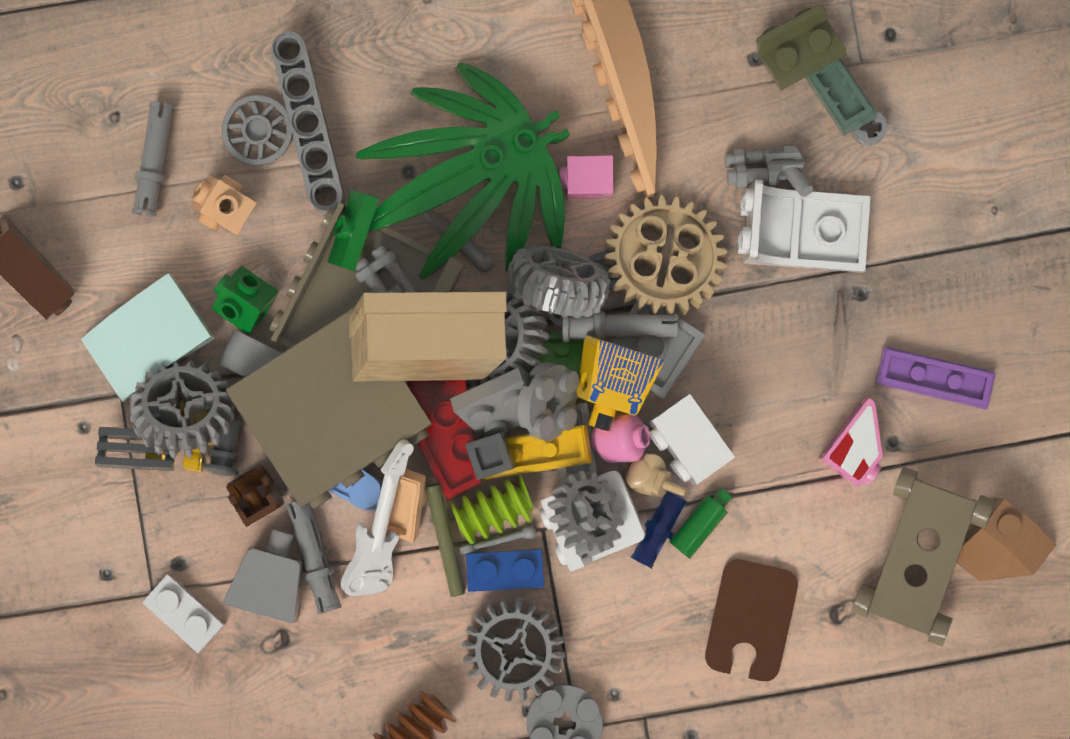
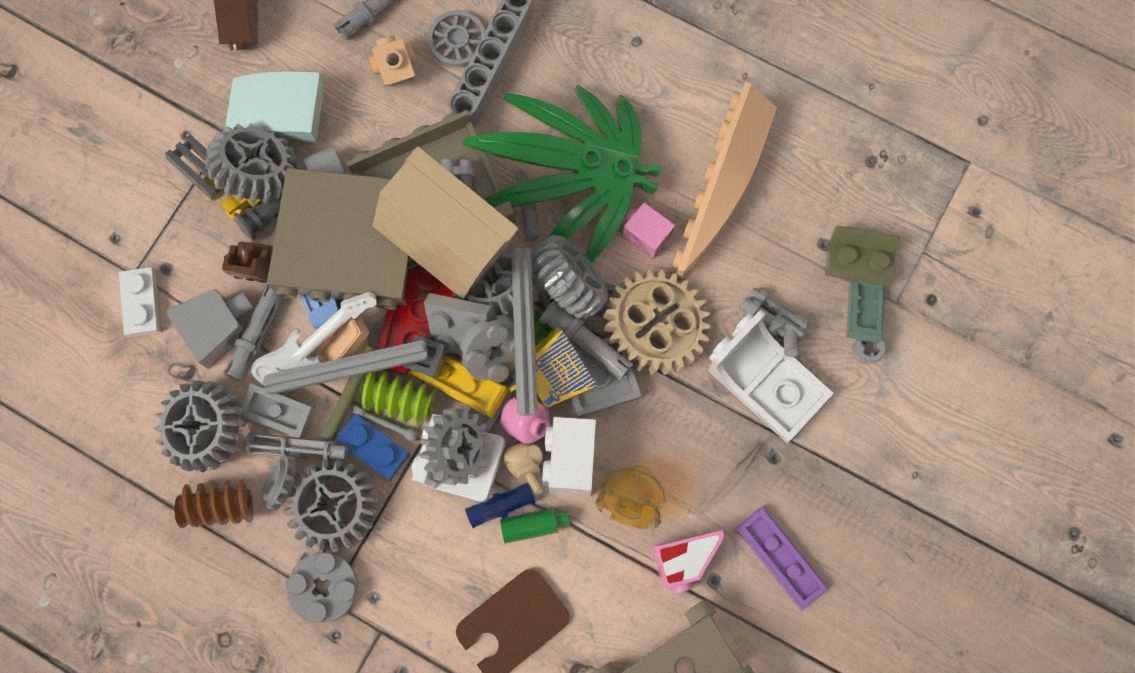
camera: 35 degrees right, 10 degrees down
(244, 299) = (354, 130): green brick -> none
(333, 664) = (189, 409): none -> light grey gear
(352, 230) = (459, 133): green plate -> none
(395, 607) = (277, 411): none -> light grey plate
(429, 522) = (346, 367): none -> light grey axle
(437, 626) = (295, 447): none -> light grey piece
(453, 667) = (279, 483): none -> light grey gear
(568, 369) = (524, 332): none -> light grey axle
(769, 429) = (633, 497): none -> clear yellow cylinder

